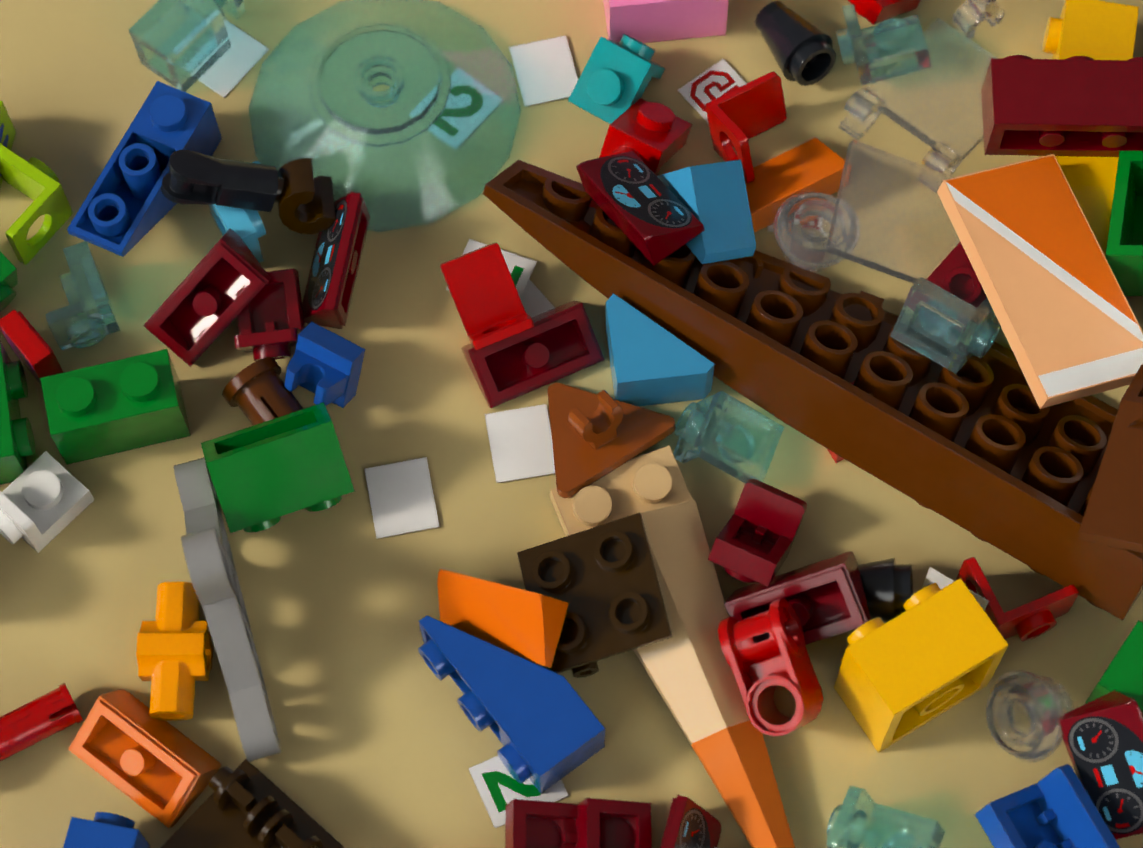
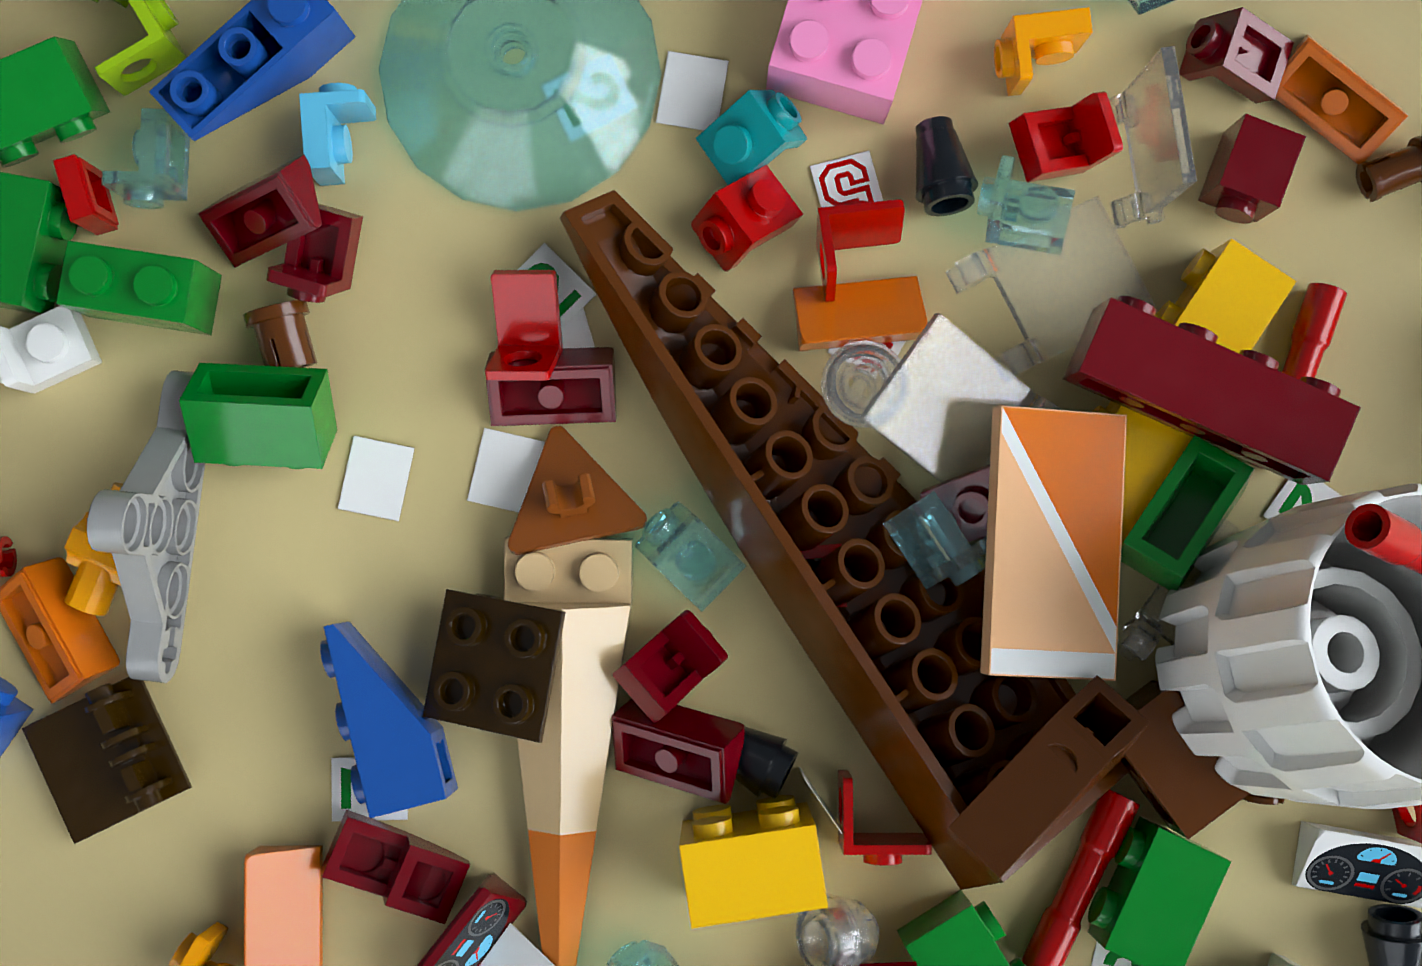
camera: 25 degrees right, 20 degrees up
(302, 200) = (386, 148): black piece -> none
(325, 366) = (349, 326): blue tile -> none
(336, 264) = (404, 223): dark red slope -> none
(502, 615) = (404, 647): orange slope -> none
(639, 204) = (702, 295): slope -> none
(650, 362) = (645, 446): dark azure slope -> none
(720, 202) = (768, 319): dark azure slope -> none
(771, 663) = (622, 805): red piece -> none

